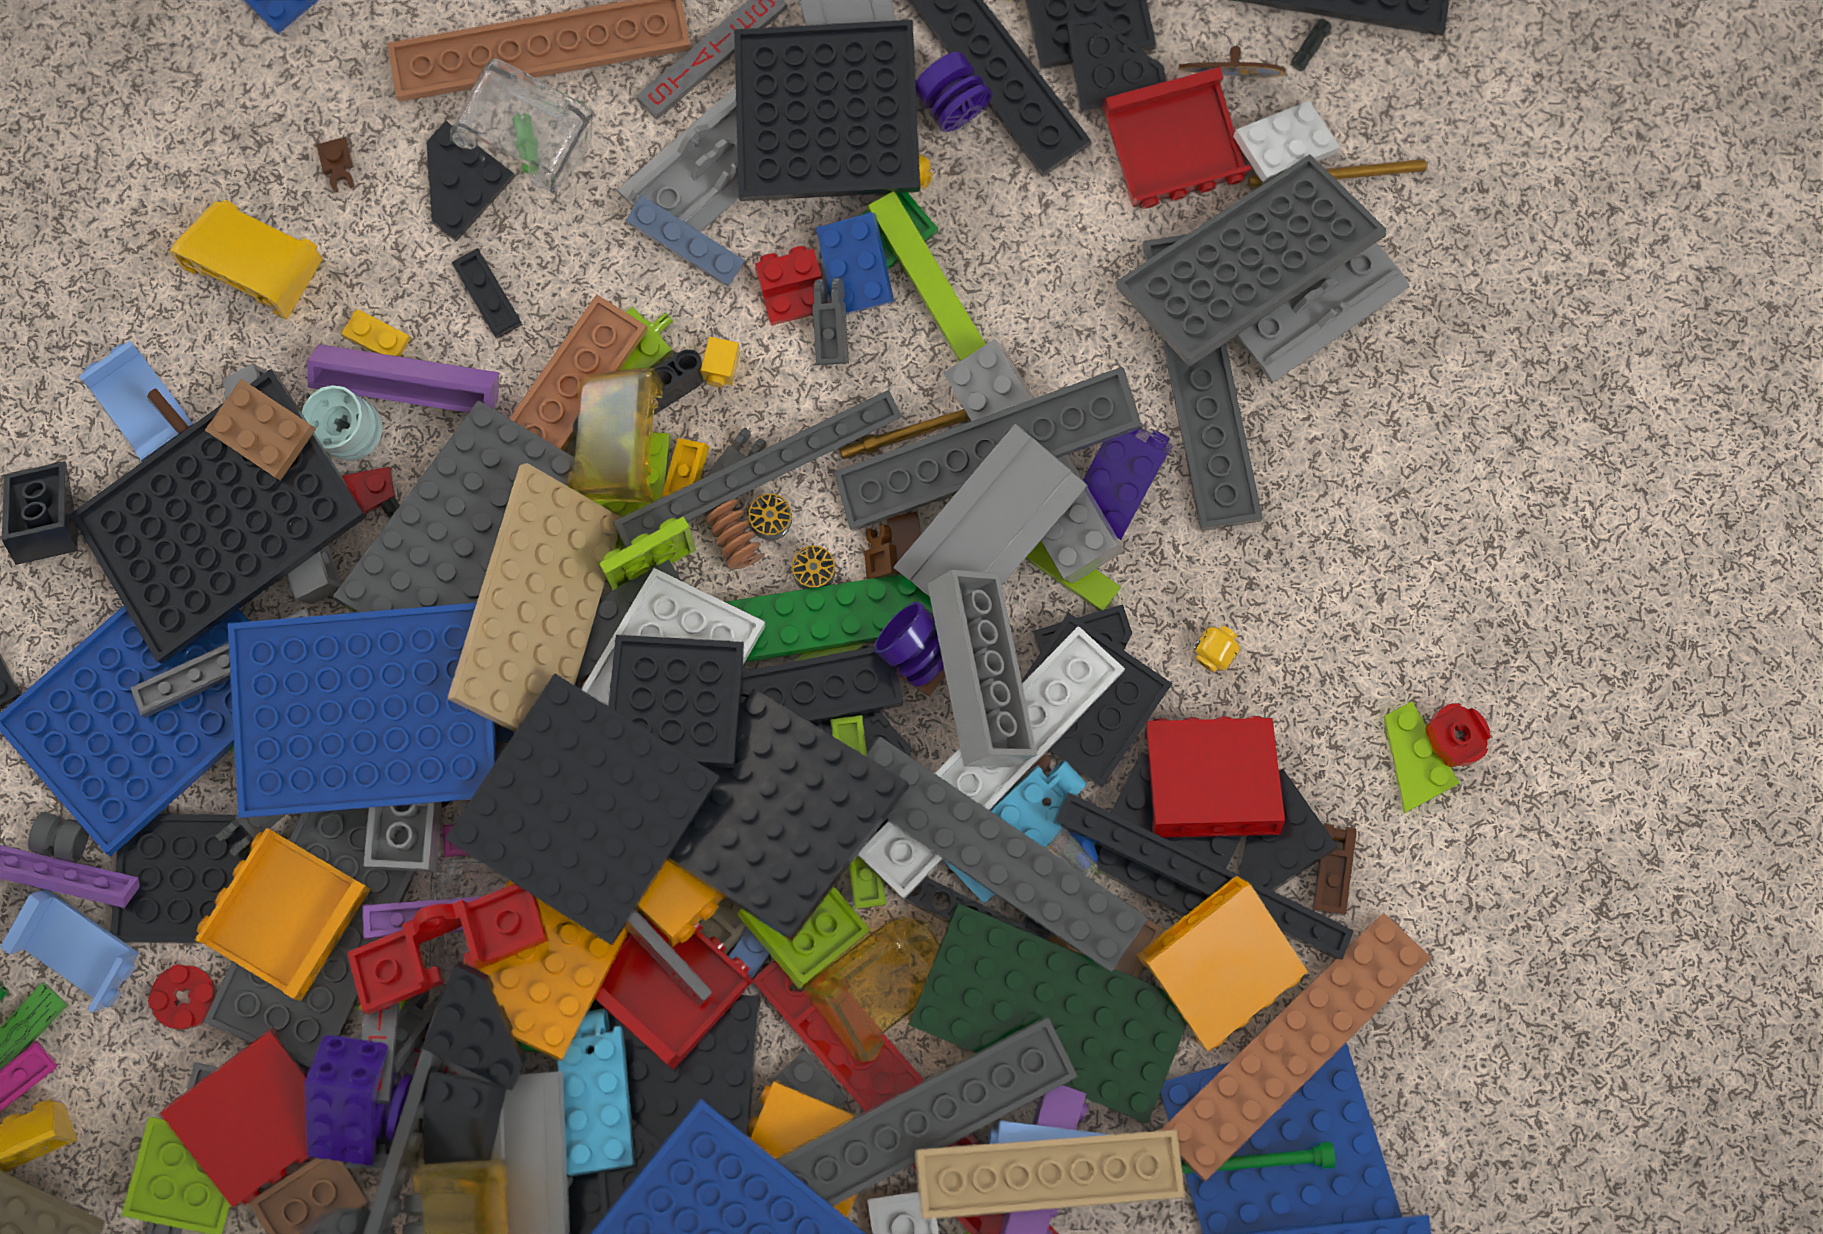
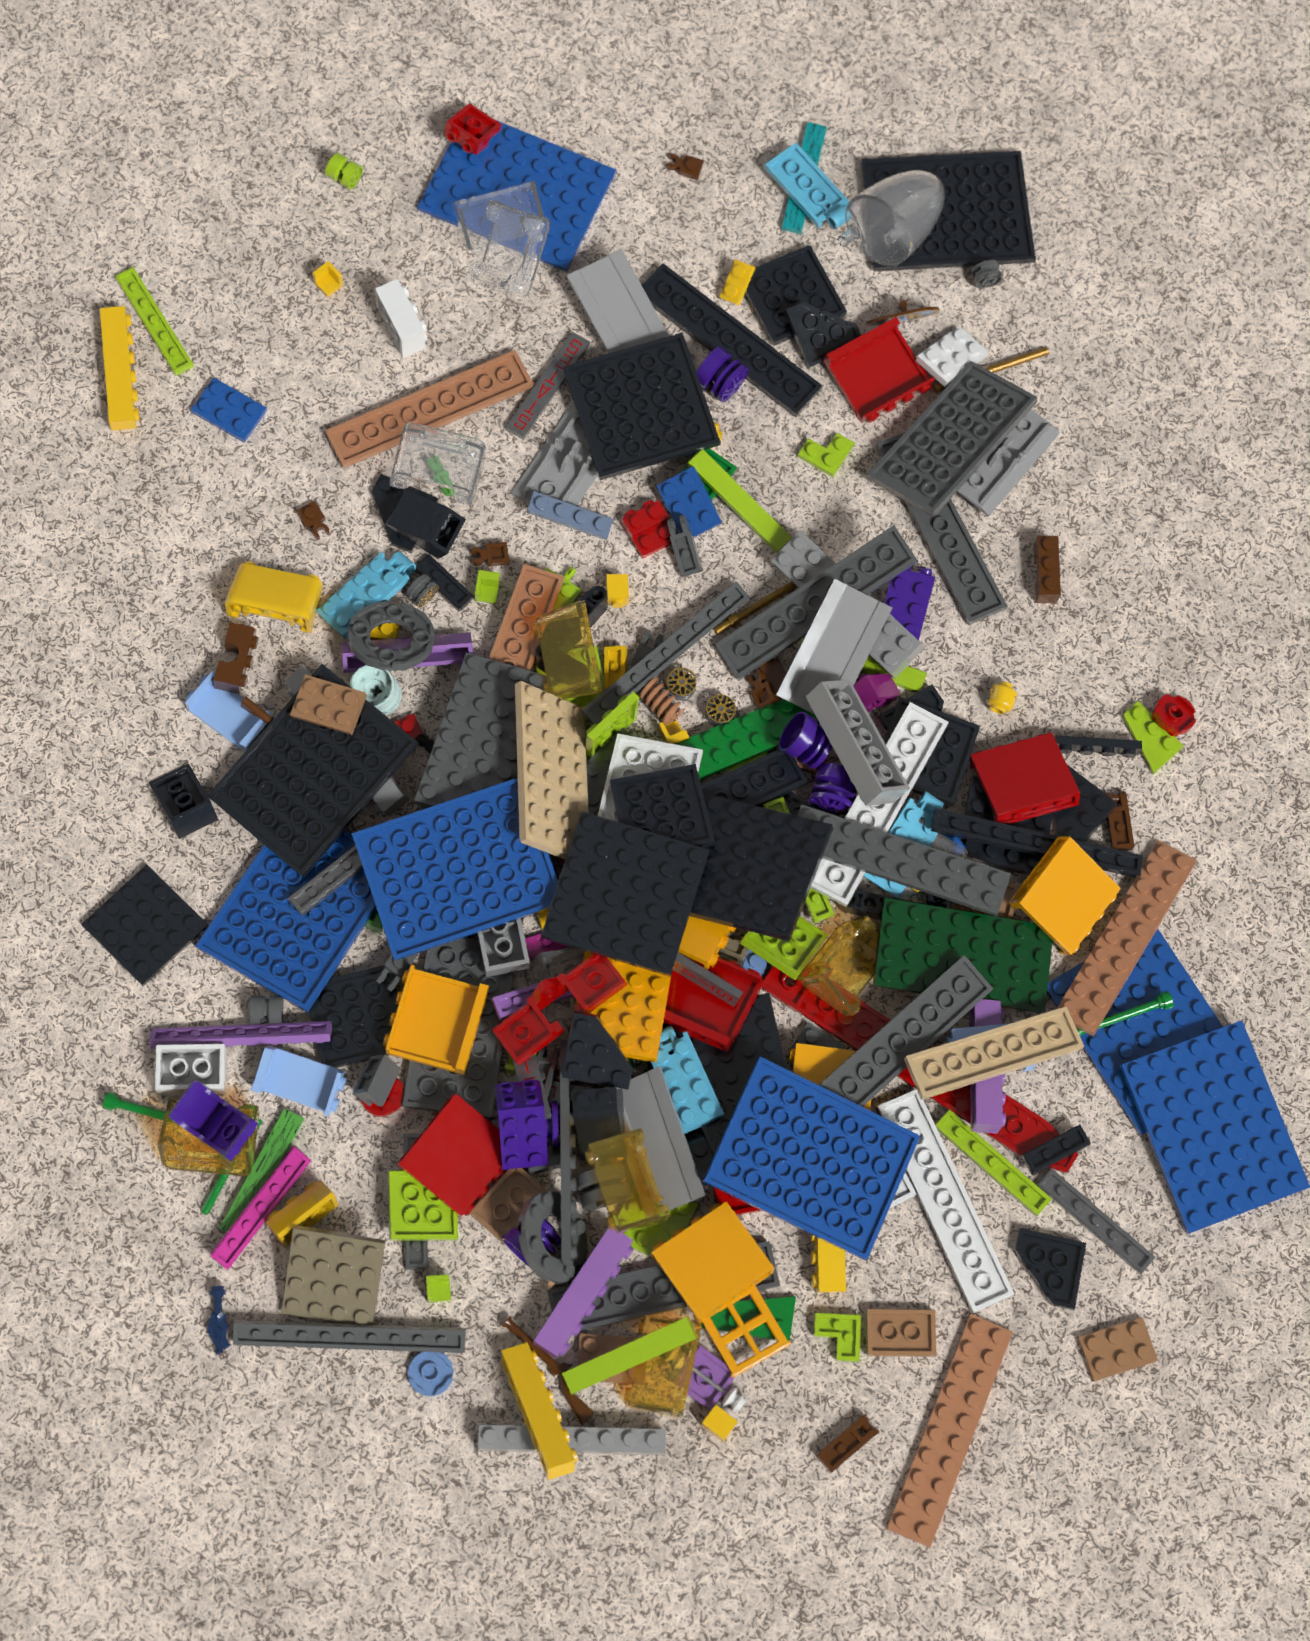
camera: 20 degrees left, 5 degrees down
(160, 353) = (231, 675): none -> reddish brown arch
(175, 979) = (376, 1080): none -> dark grey hinge
(371, 317) = (386, 659): none -> dark grey plate
(375, 282) = (371, 585): none -> medium azure hinge
(450, 296) = (422, 590): none -> dark grey wheel
(480, 204) = (426, 523): none -> black slope
(542, 313) = (487, 586): none -> lime panel
(567, 271) = (495, 554): none -> reddish brown plate
(737, 584) = (672, 732): none -> yellow panel
(935, 728) = (833, 789): none -> dark purple wheel
(1036, 596) = (876, 690): none -> magenta brick
(1070, 246) = (829, 458): none -> lime plate
(1311, 44) = (949, 288): pearl dark grey axle -> none
(1335, 479) = (1048, 569): none -> reddish brown arch
(1346, 757) = (1105, 746): none -> black plate
(1369, 36) = (987, 274): none -> dark grey wheel

